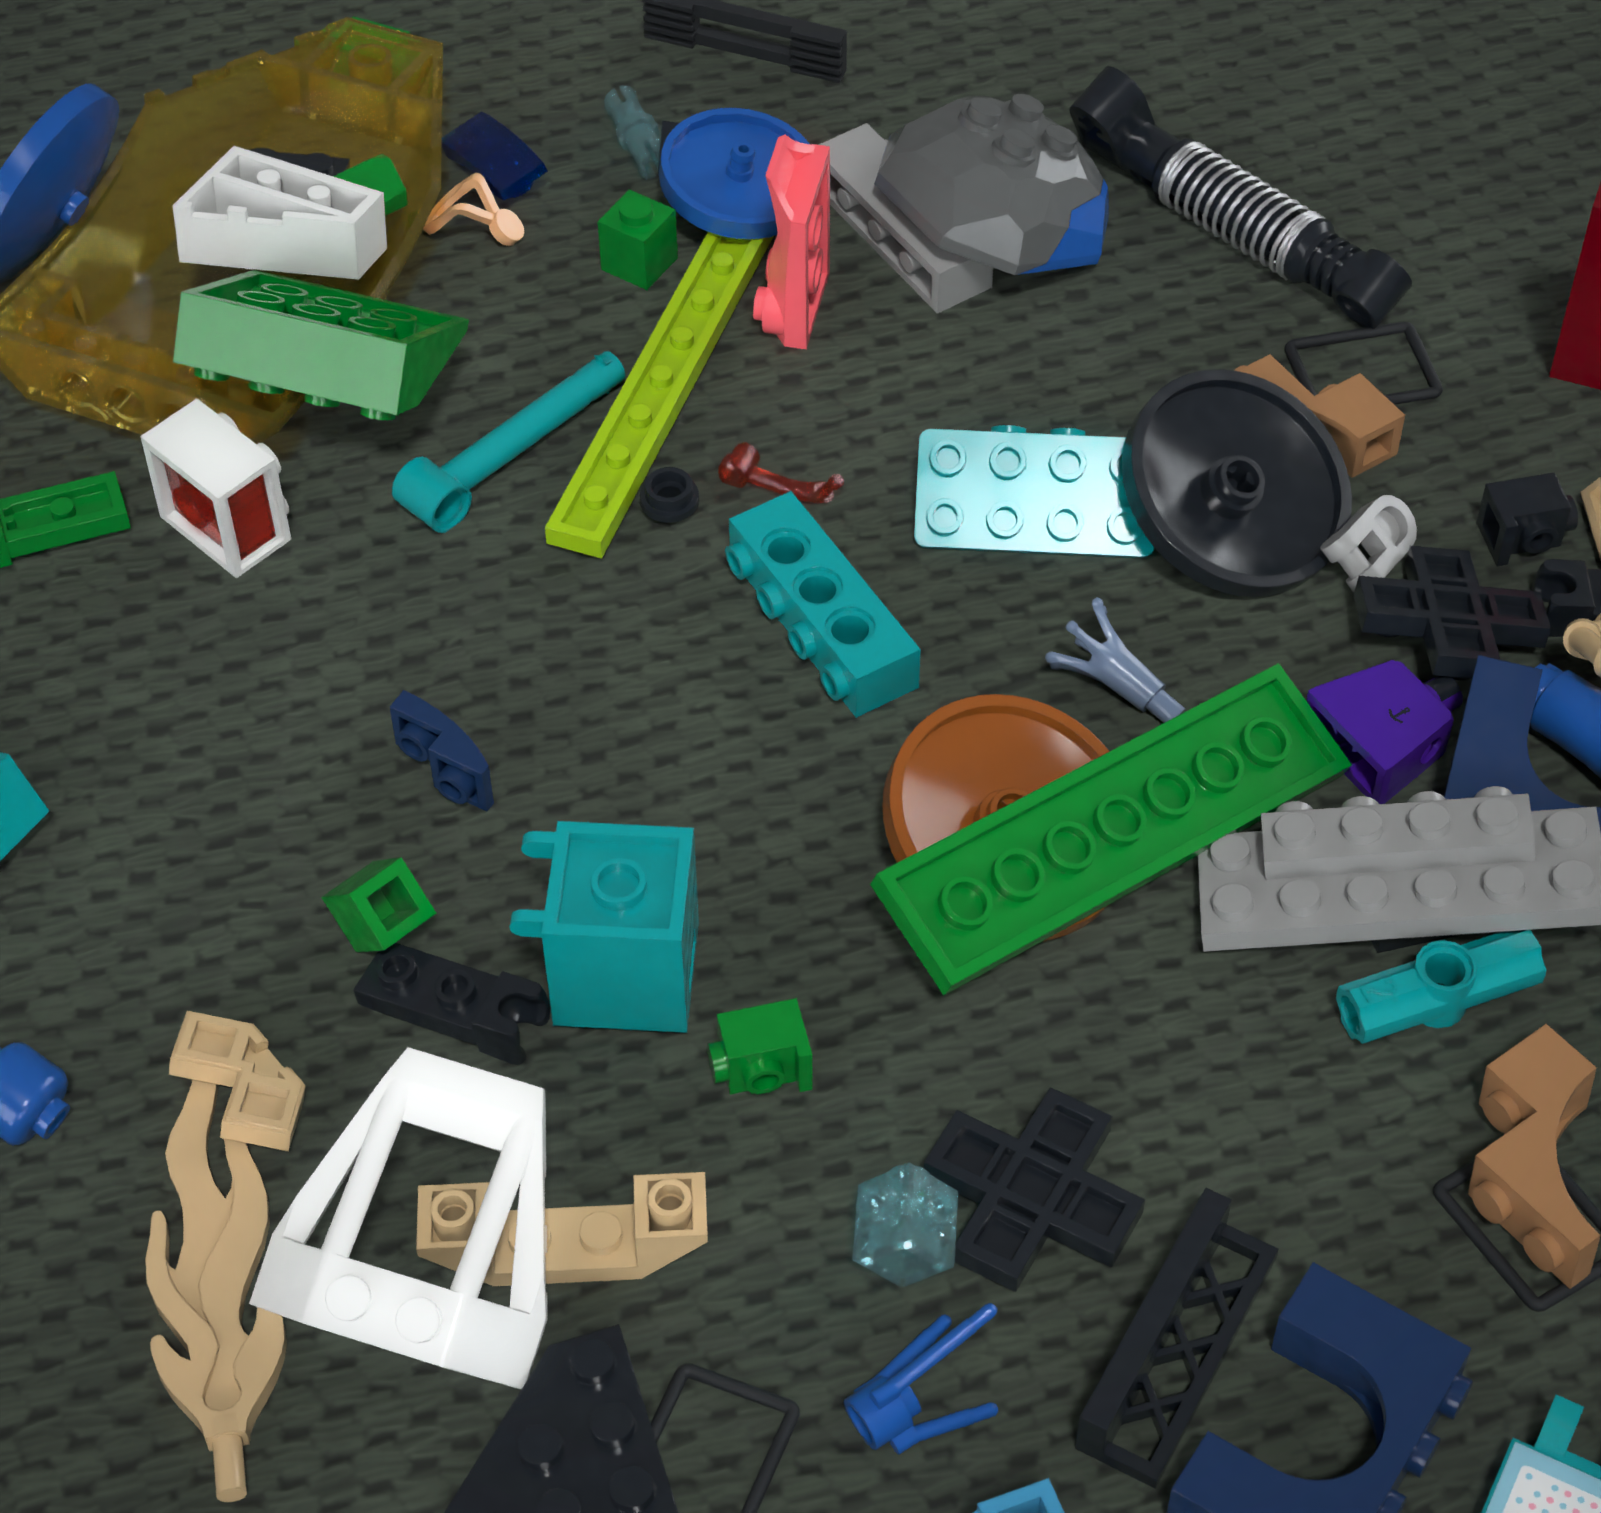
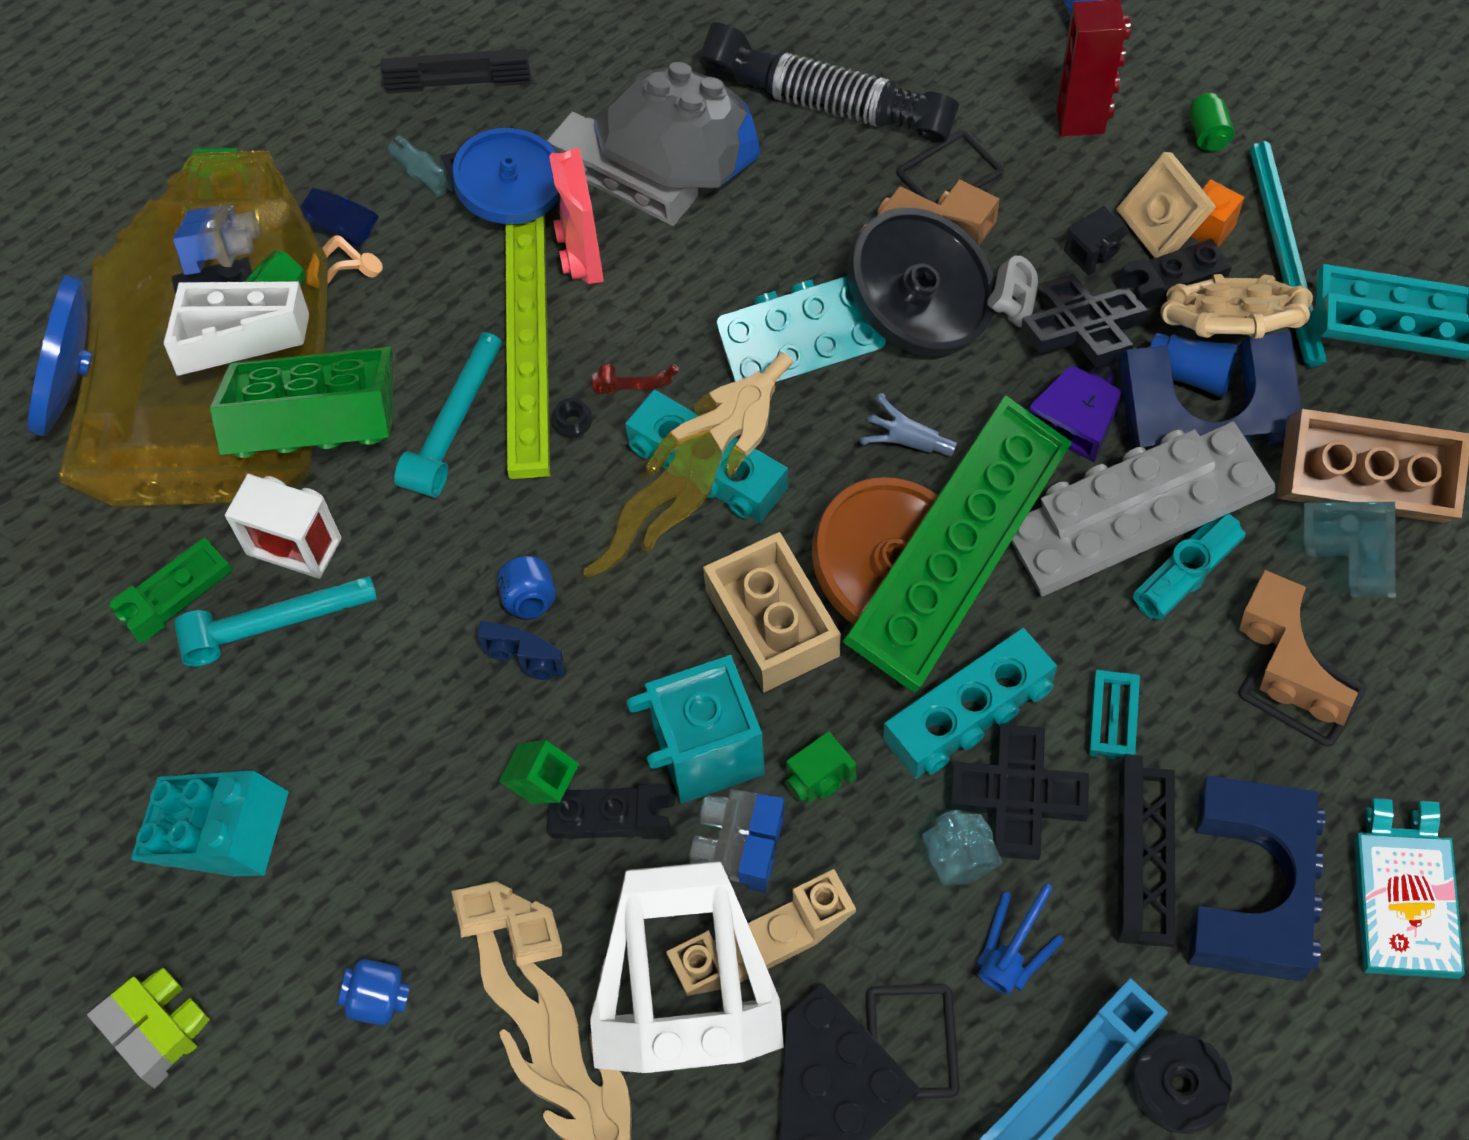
camera: 20 degrees left, 10 degrees up
(47, 584) = (201, 634): none -> teal piece
(317, 114) = (214, 234): none -> clear hips
(491, 676) = (526, 587): none -> blue head
(615, 1095) = (747, 836): none -> hips
(637, 239) = (463, 245): green brick -> none
(802, 823) = (772, 612): none -> tan brick
(810, 577) = (701, 442): none -> clear yellow piece
(1045, 1020) = (1015, 658): none -> teal brick
(1257, 1098) = (1111, 749): none -> teal tile

